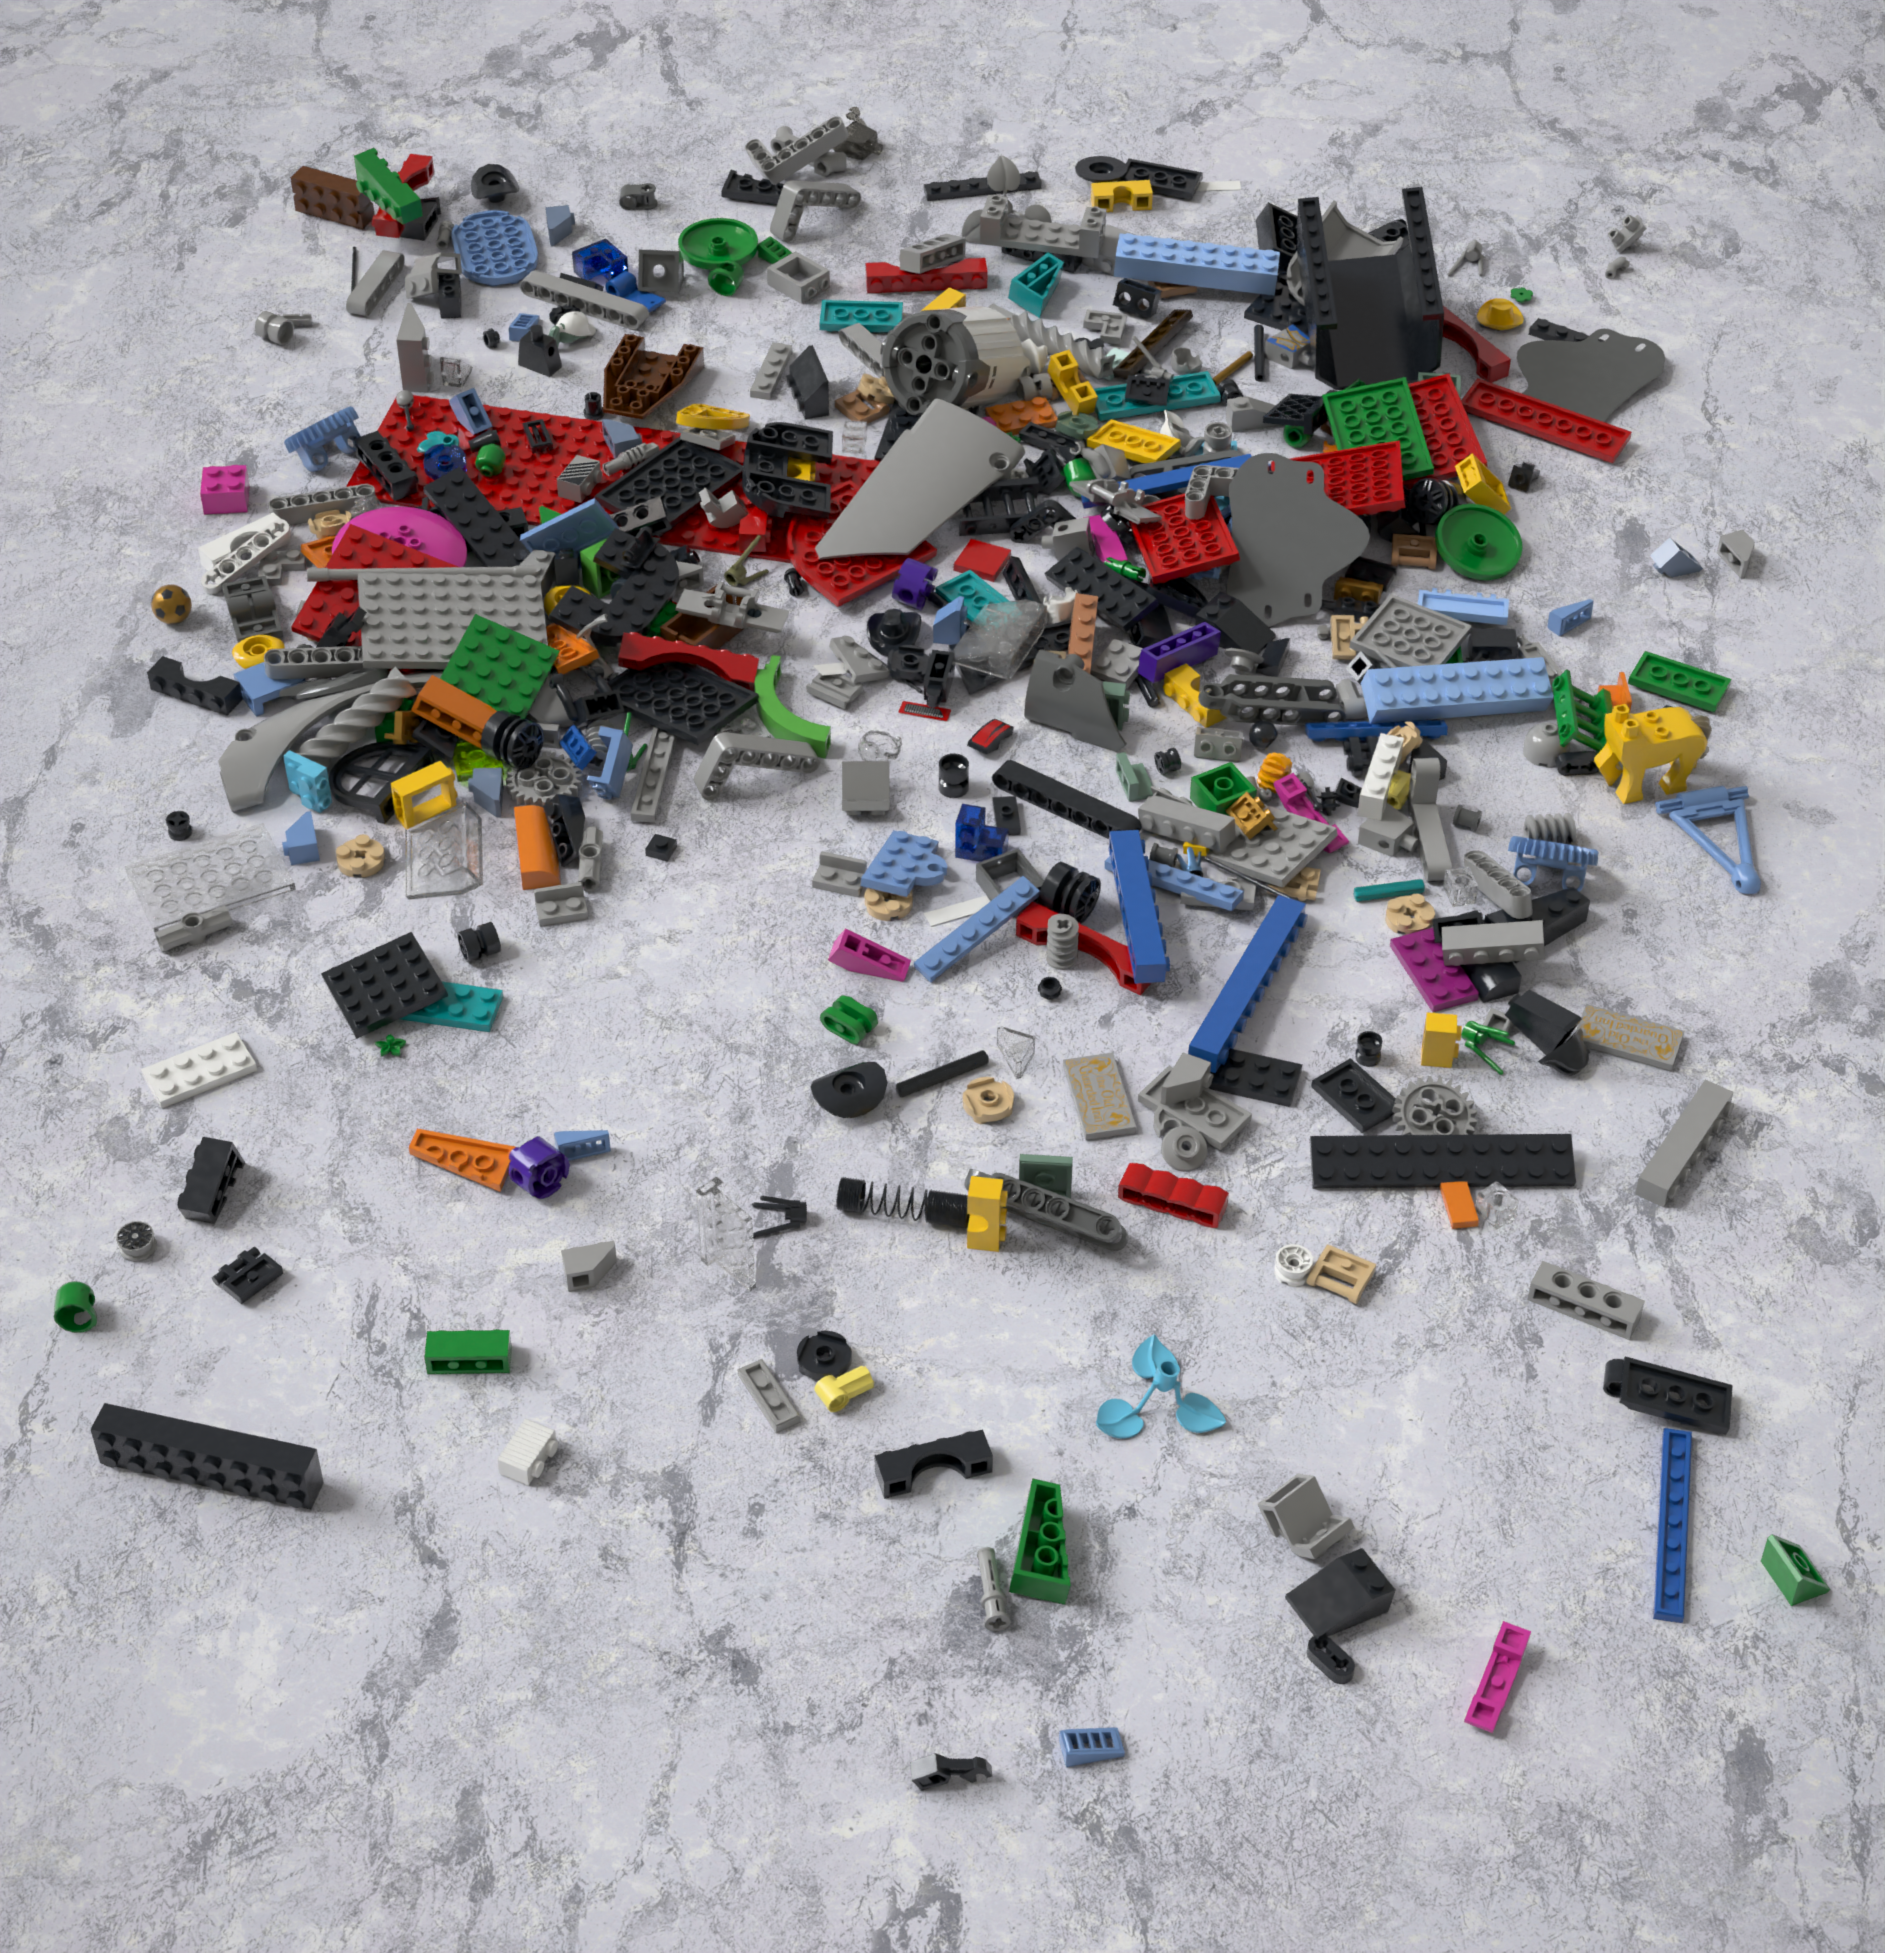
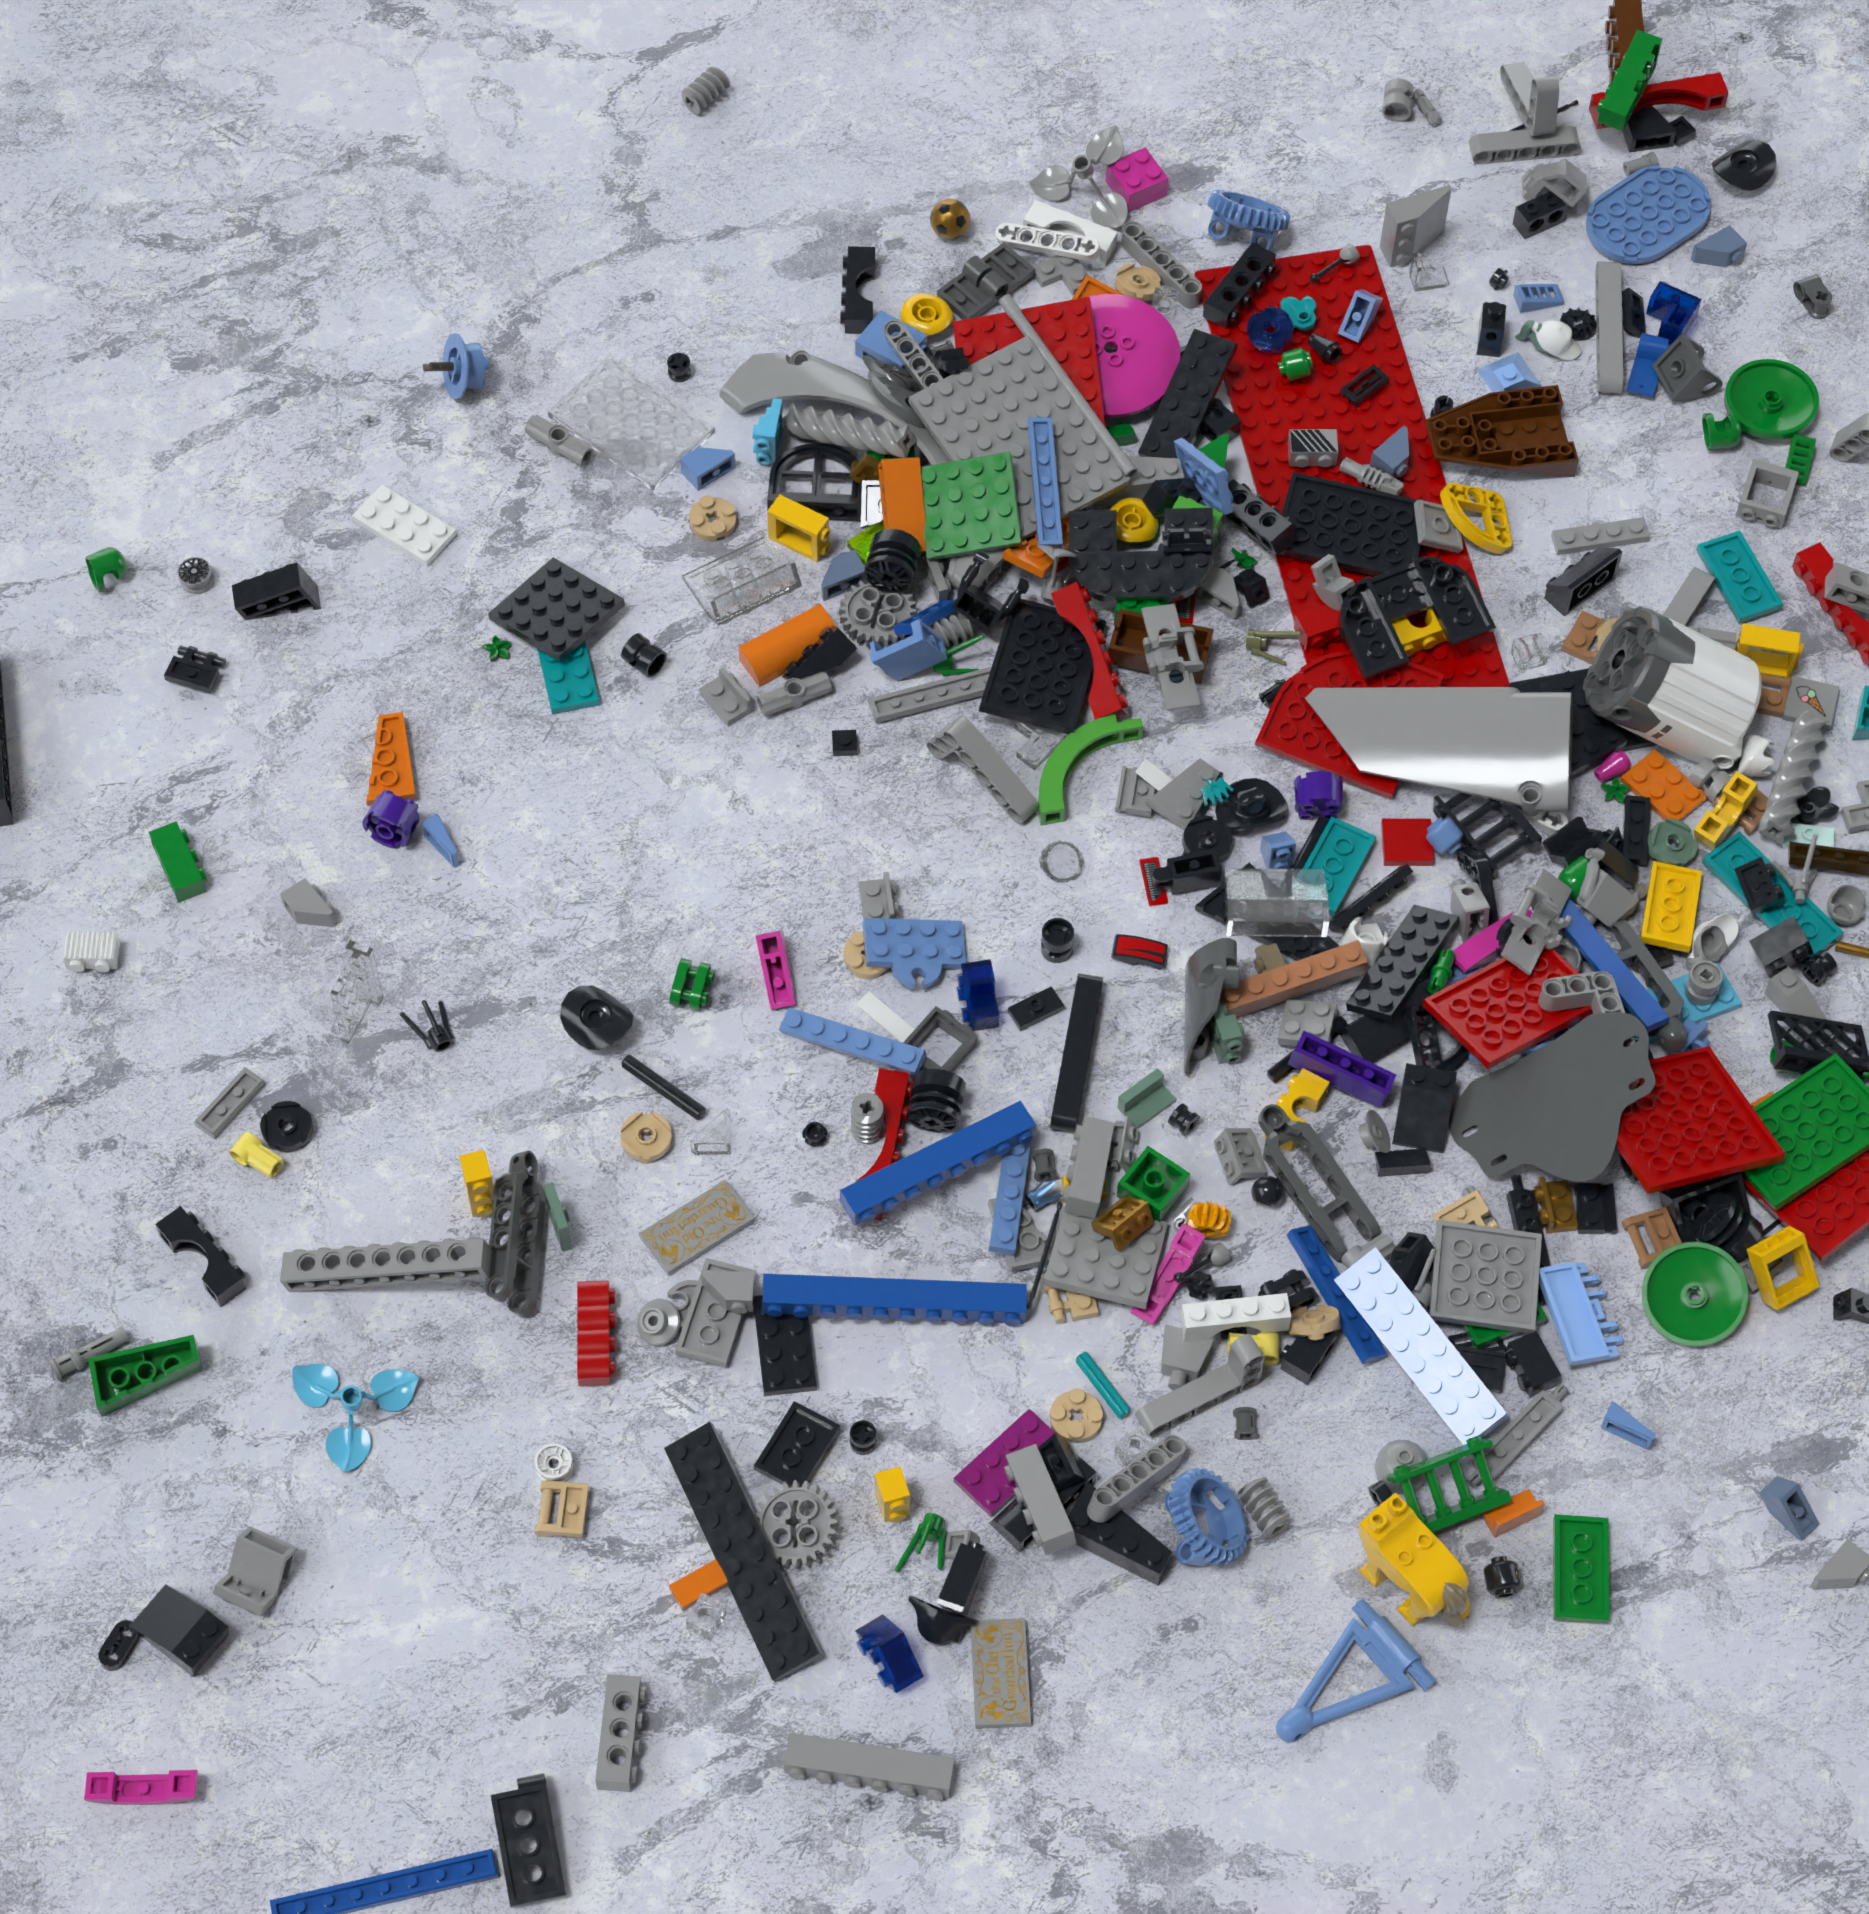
camera: 65 degrees right, 15 degrees up
(59, 963) = (461, 366): none -> medium blue piece
(186, 485) = (1054, 180): none -> light grey plant
(364, 257) = (1533, 97): none -> light grey beam
(513, 614) = (1044, 482): none -> medium blue plate
(586, 365) = (1508, 374): none -> light blue slope
(865, 787) = (1003, 873): light grey piece -> none
(870, 639) = (1215, 790): none -> teal piece
(939, 1206) = (473, 1074): black piece -> none
(997, 530) = (1444, 835): none -> medium blue head
(998, 1393) = (396, 1272): none -> light grey brick
(1211, 394) = (1782, 947): none -> black brick
(1586, 1086) = (891, 1652): none -> clear blue brick

